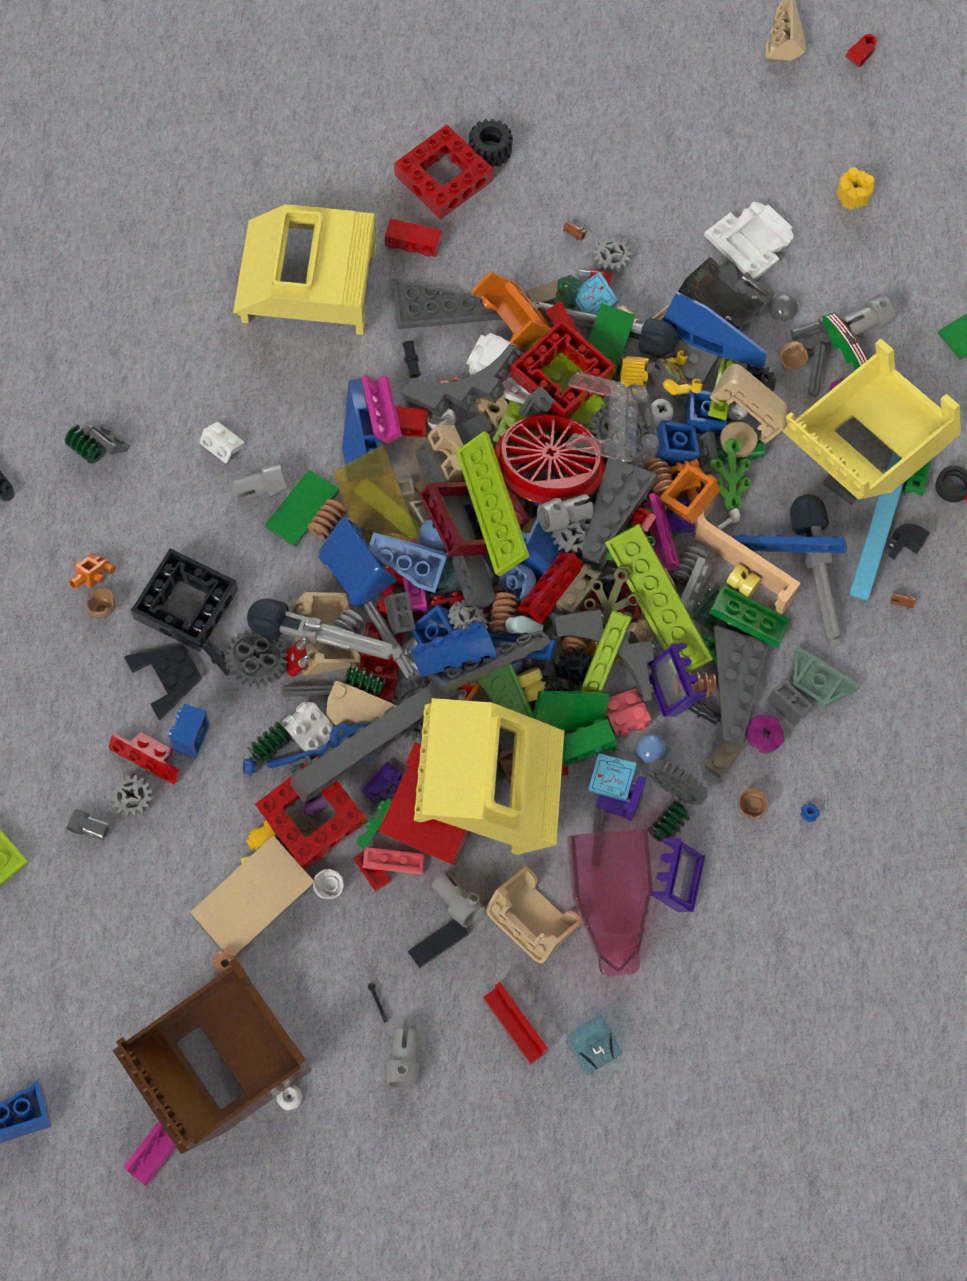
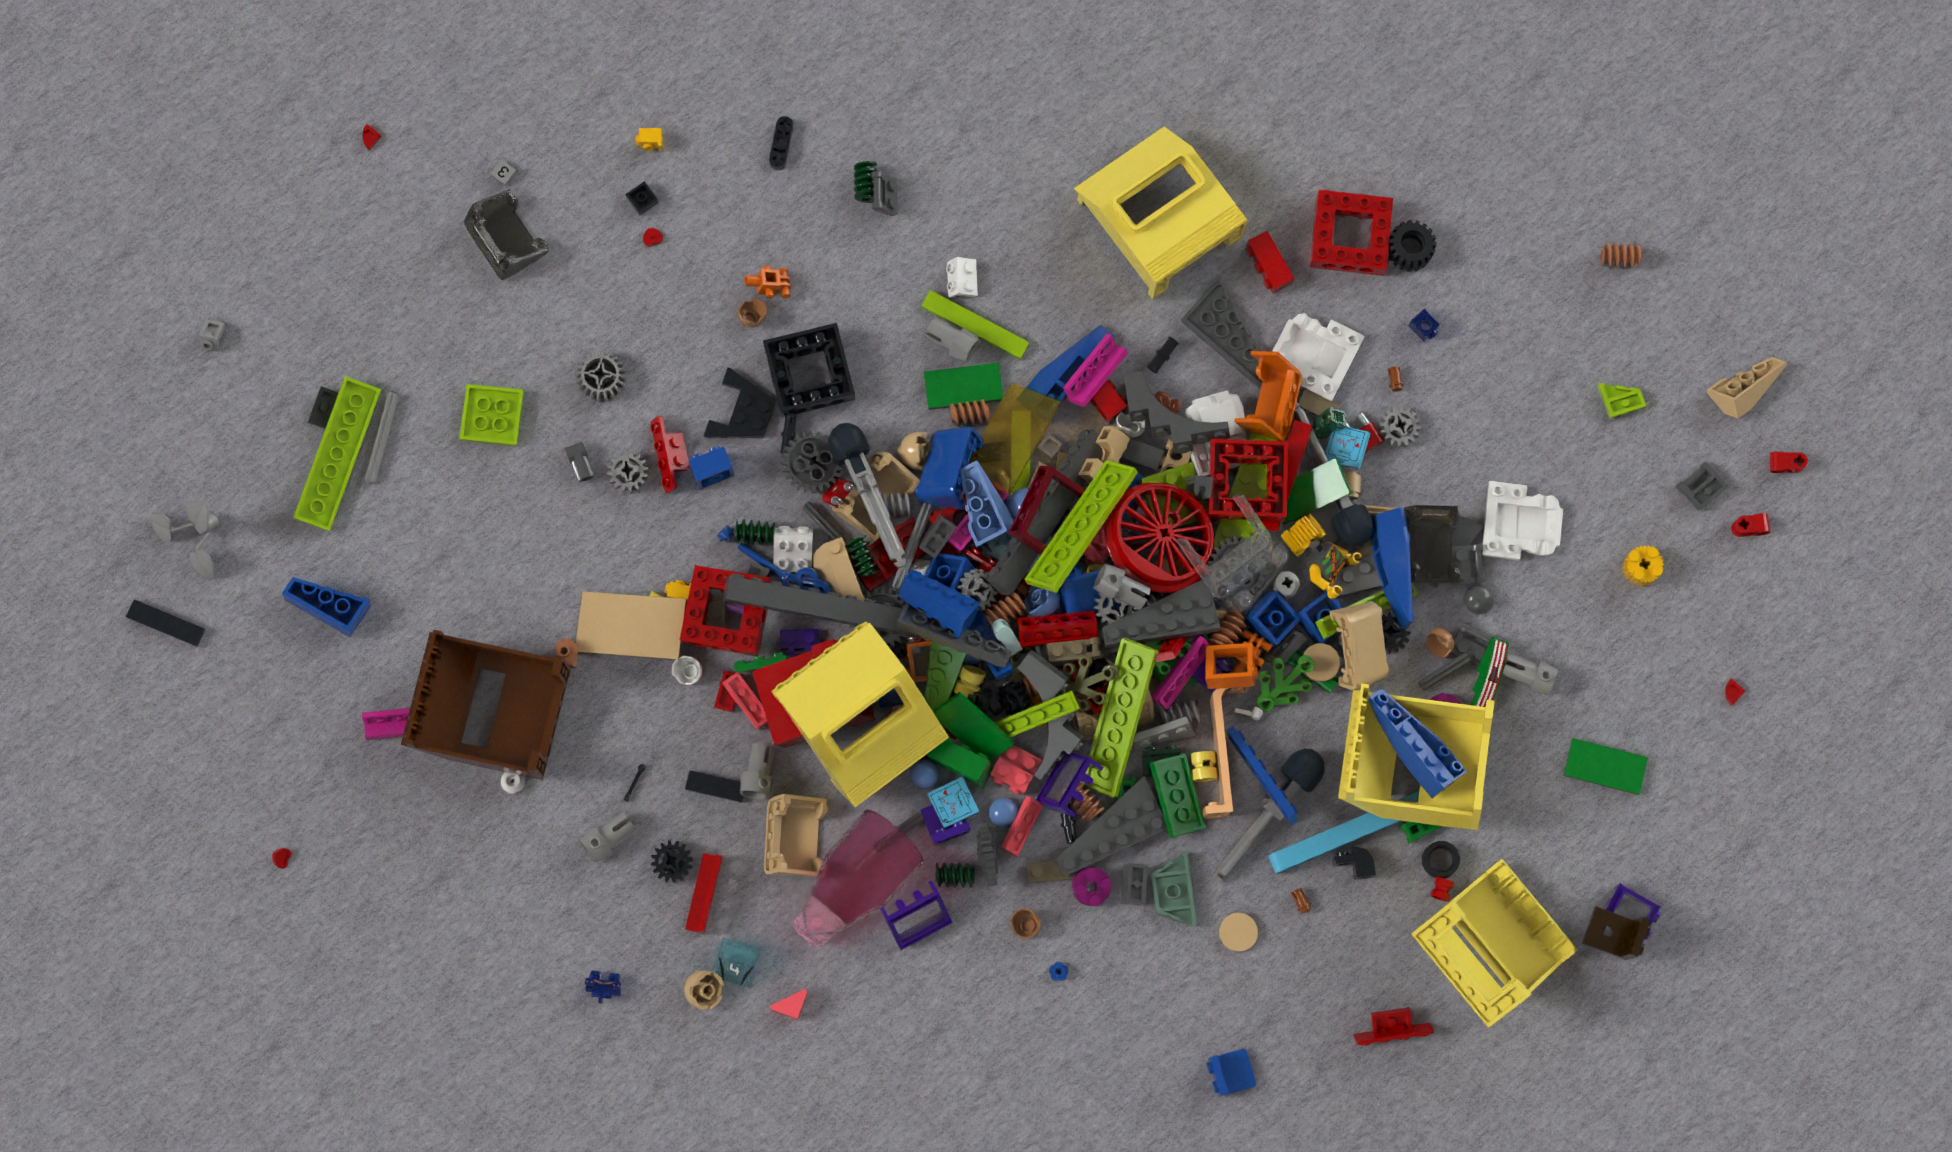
camera: 45 degrees right, 10 degrees up
(27, 764) = (583, 374): none -> light grey gear
(252, 465) = (975, 324): none -> lime tile
(318, 578) = (914, 450): none -> tan cylinder
(476, 1028) = (679, 856): none -> black gear
(510, 256) = (1319, 352): none -> white piece
(522, 1168) = (603, 988): none -> clear blue hips
(549, 184) = (1424, 317): none -> clear blue brick
(572, 780) = (924, 774): none -> medium blue hair
(593, 1088) = (703, 989): none -> tan cylinder
(623, 29) = (1620, 254): none -> nougat piece
(665, 1033) = (791, 1005): none -> coral slope
(674, 743) = (1021, 826): none -> coral tile
(723, 110) = (1621, 400): none -> lime wing
(837, 112) = (1706, 491): none -> dark grey plate
(863, 422) = (1416, 745): none -> blue wedge
(886, 106) = (1754, 525): none -> red piece
(889, 662) = (1238, 932): none -> tan tile

